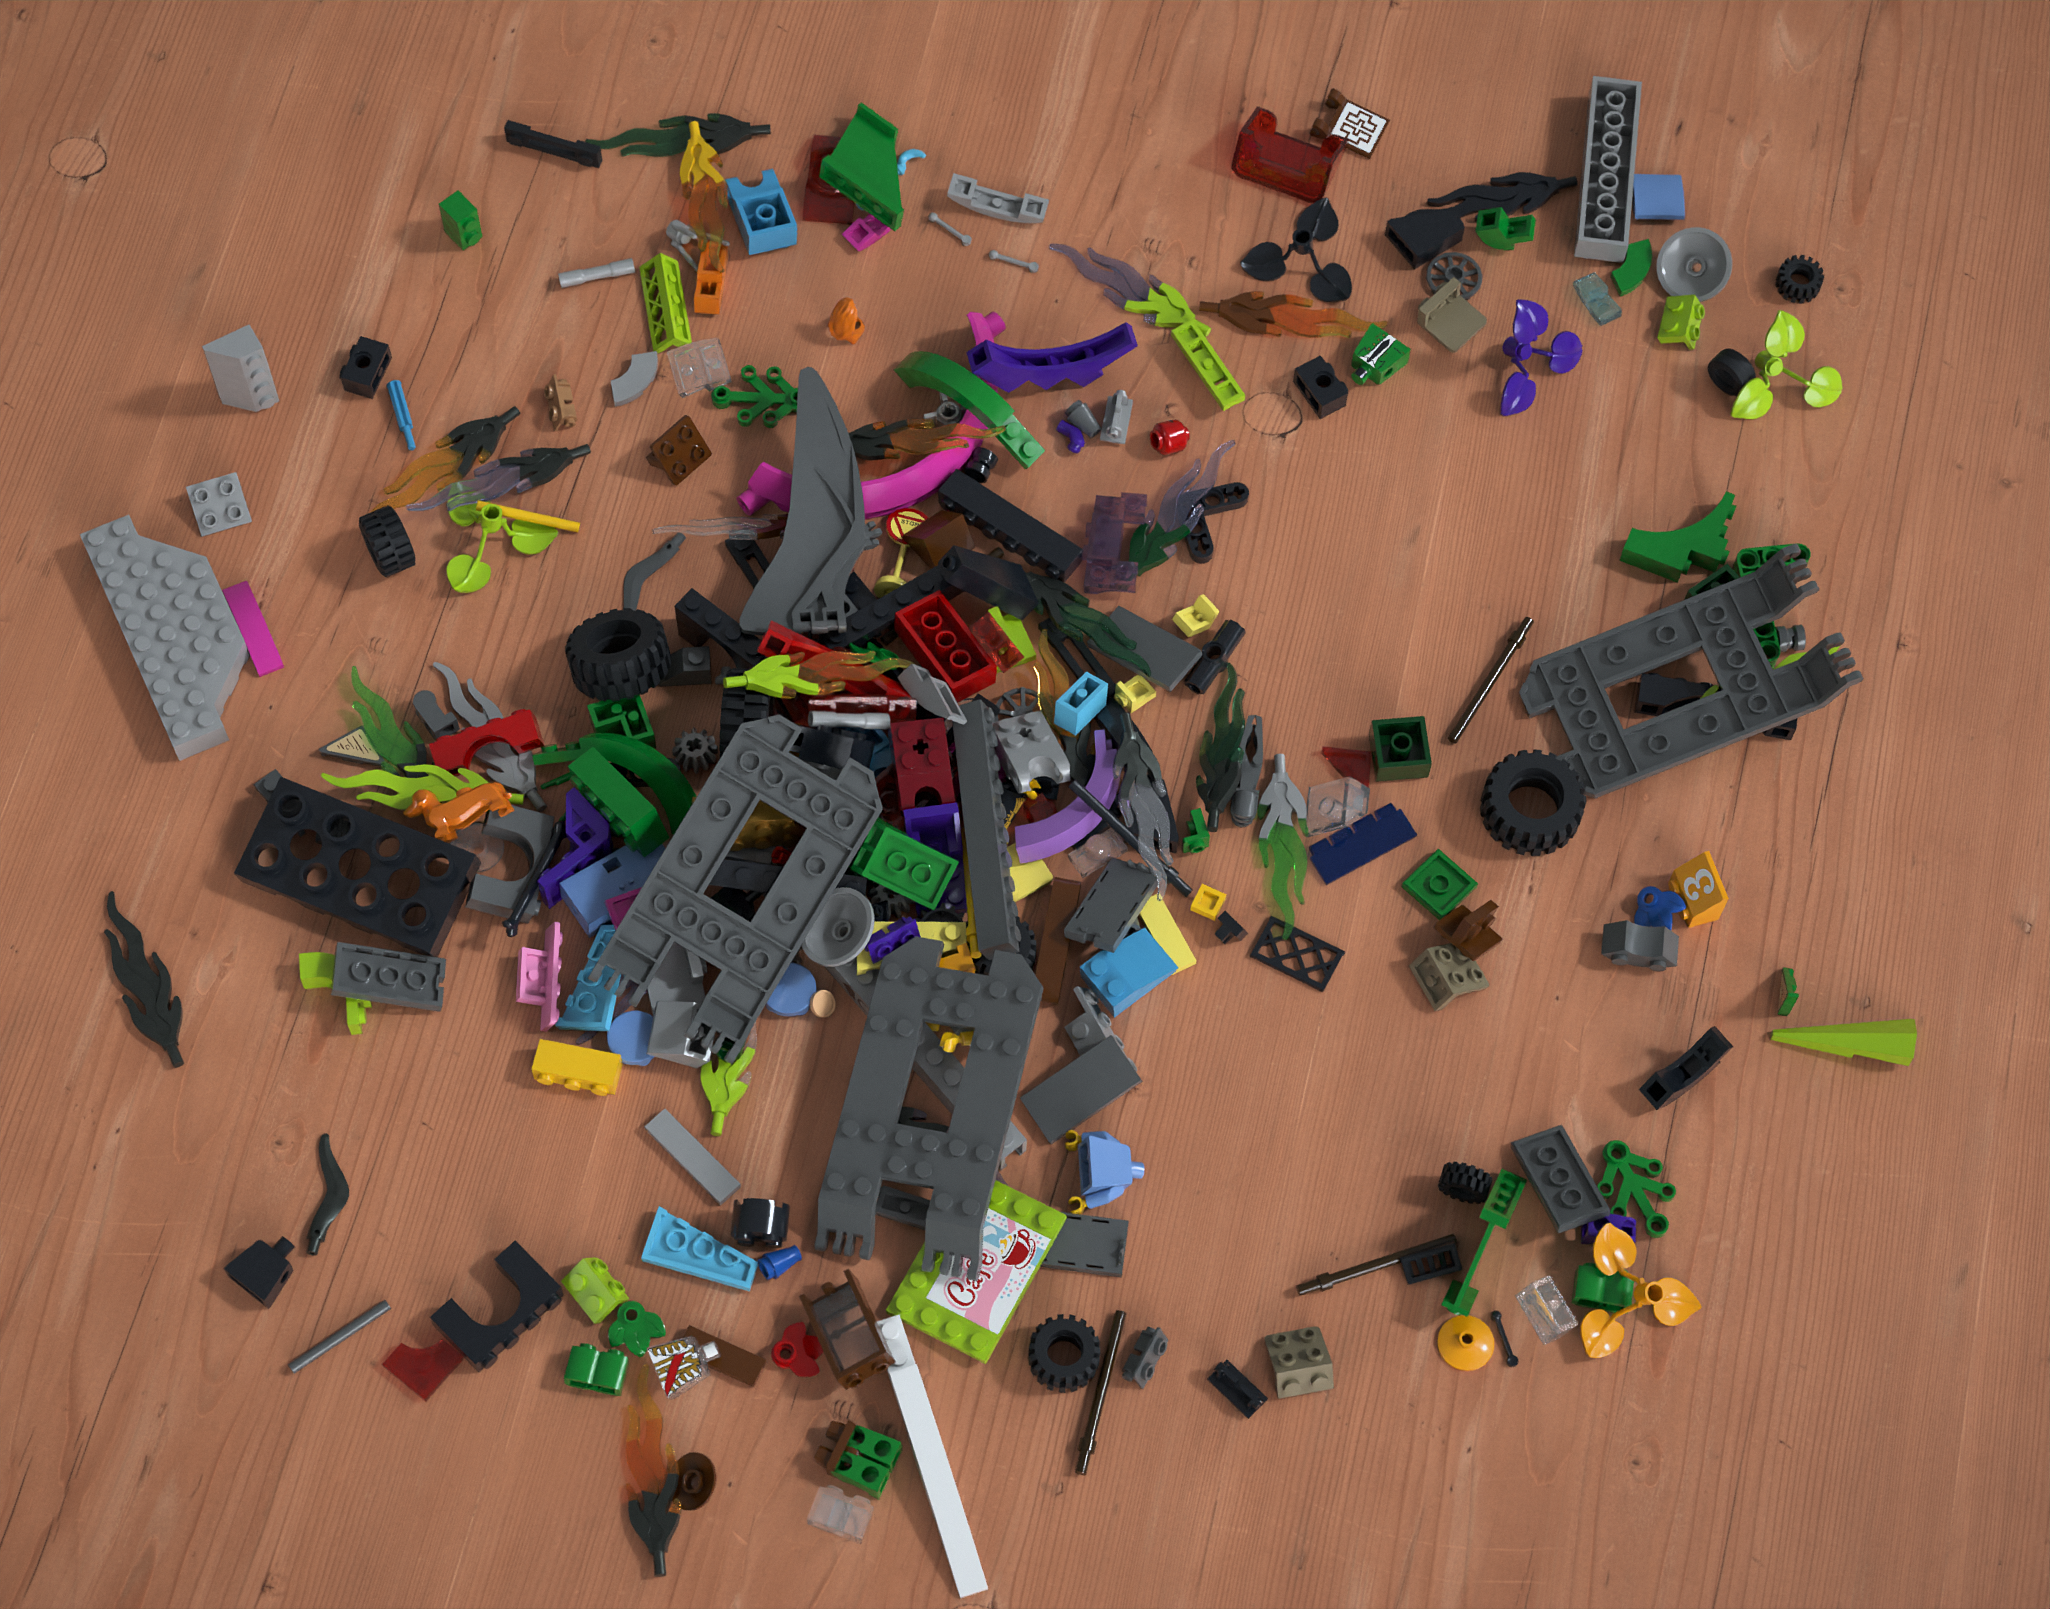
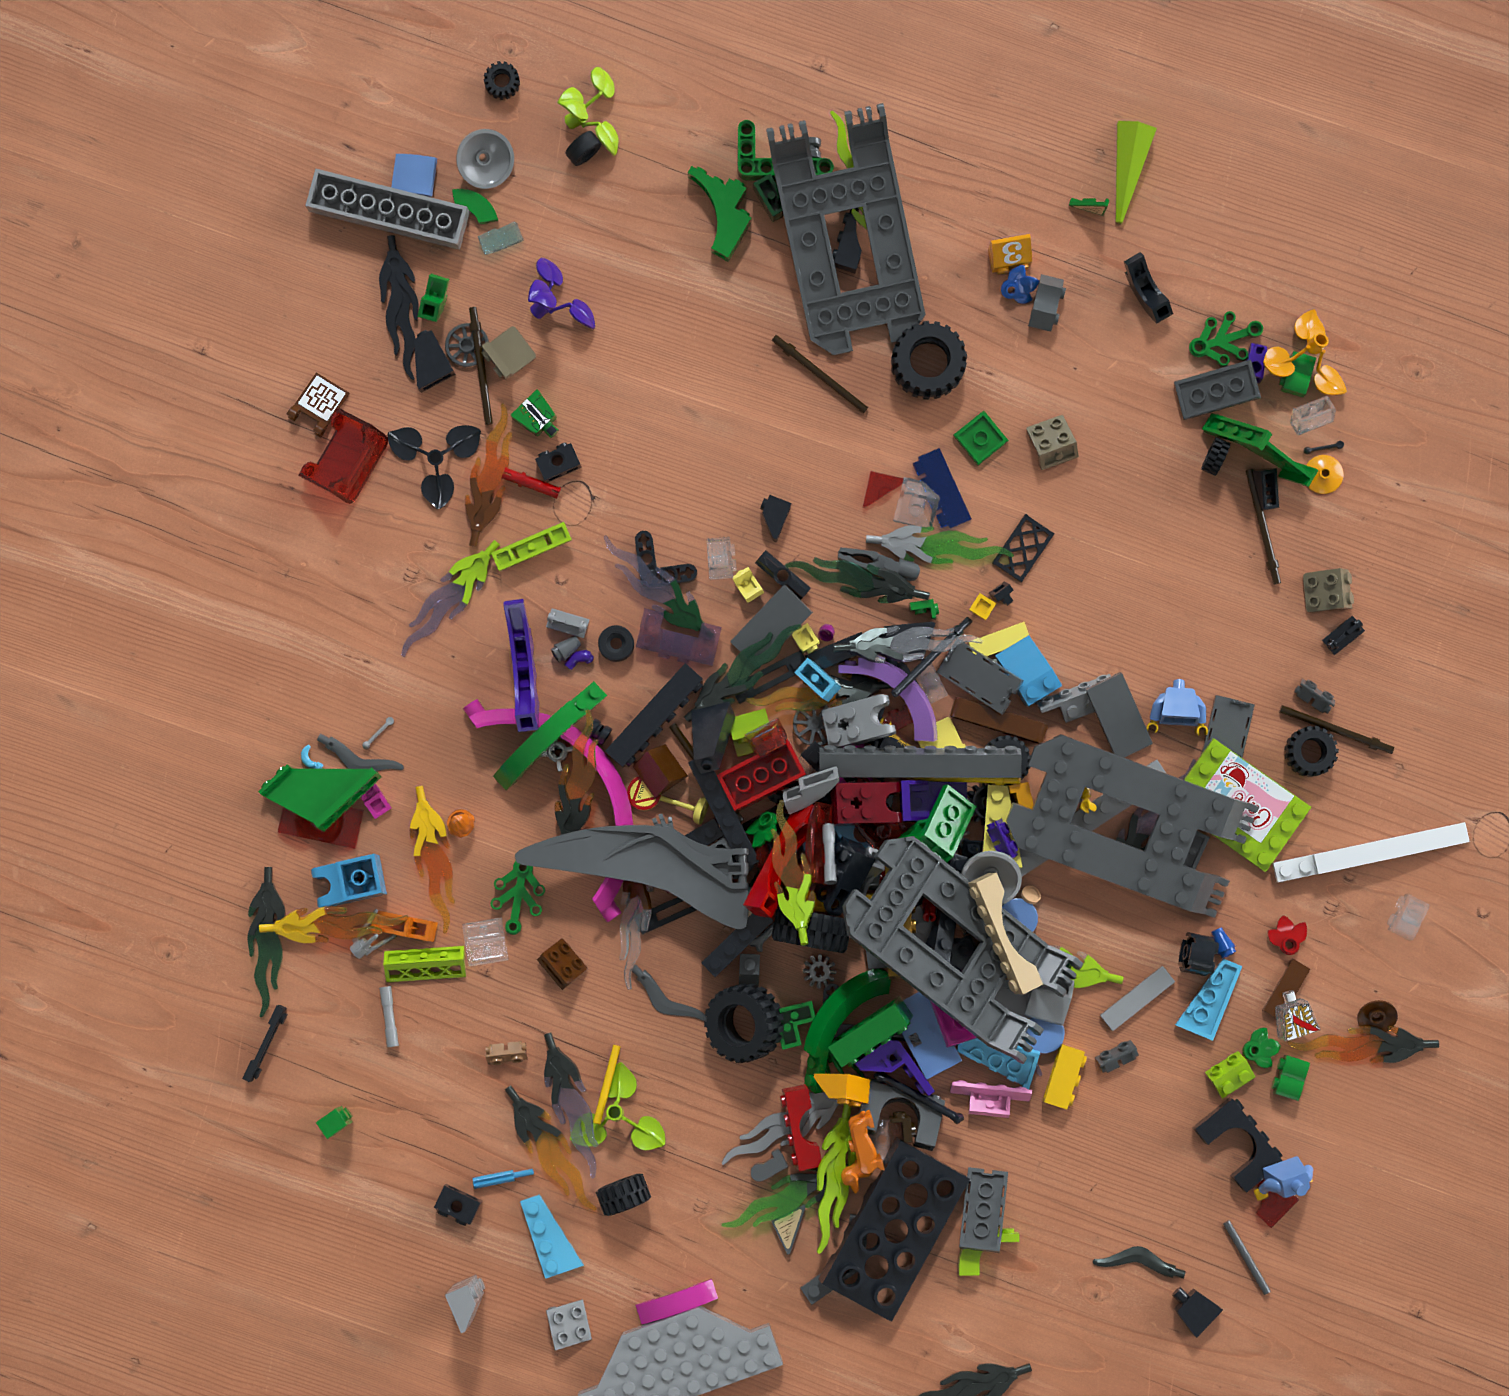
camera: 80 degrees left, 20 degrees up
(316, 479) = (550, 1242): none -> medium azure wing
(452, 1367) = (1285, 1179): none -> medium blue torso
(497, 865) = (907, 1127): none -> dark brown bracket
(540, 780) = (845, 1088): none -> light orange slope
(605, 1126) = (1109, 1058): none -> dark grey hinge
(636, 379) = (489, 991): light grey tile -> none
(712, 973) = (988, 896): none -> tan arch
(808, 297) = (429, 849): none -> piece
(848, 1332) = (1284, 900): door -> none
(859, 1456) = (1369, 899): green hips -> none
(912, 205) = (352, 761): none -> dark grey piece
(995, 203) = (360, 692): light grey slope -> none
(1033, 266) = (420, 671): light grey hinge -> none
(1099, 461) = (606, 637): none -> black tyre
(1146, 717) = (826, 632): none -> magenta hinge
(1169, 437) = (590, 584): red head -> none
(1225, 578) = (720, 558): none -> clear brick
(1291, 350) = (530, 482): none -> red pin
(1291, 641) = (775, 514): none -> black slope
(1400, 748) = (875, 449): dark green brick -> none
(1470, 930) = (1023, 422): reddish brown bracket -> none
(1477, 279) = (475, 328): none -> dark brown bar
(1681, 320) = (528, 177): lime bracket -> none

